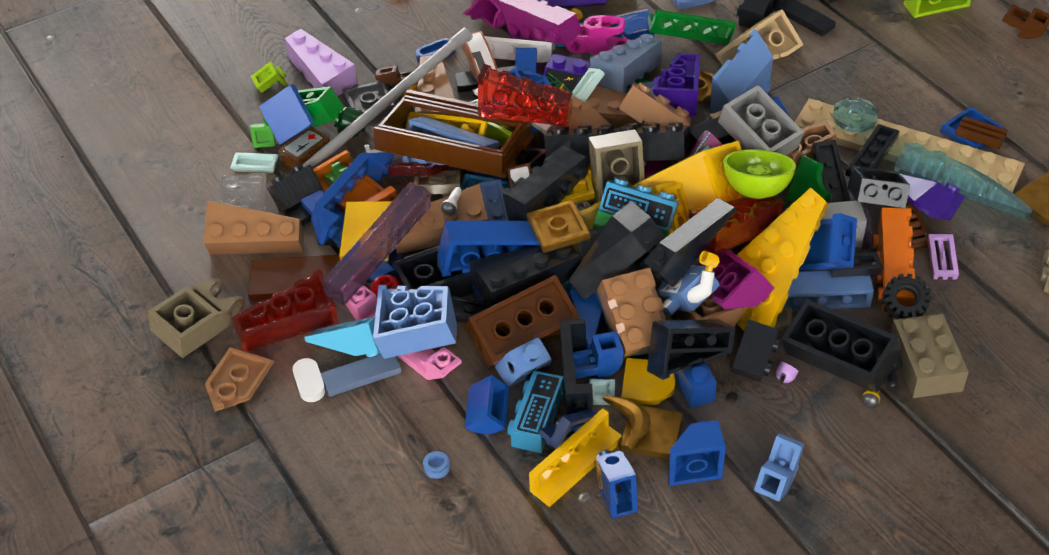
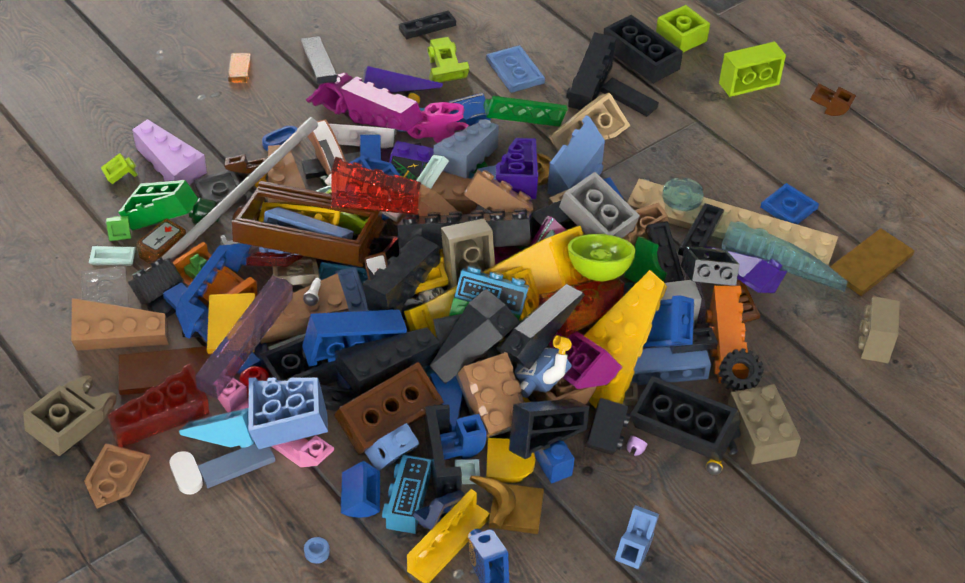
camera: 10 degrees left, 0 degrees up
(287, 114) = (143, 208): tile -> none
(558, 226) = (417, 314): pearl gold tile -> none
(697, 454) = (562, 528): blue slope -> none
(944, 273) = (778, 326): lavender tile -> none
(981, 132) = (798, 208): reddish brown tile -> none

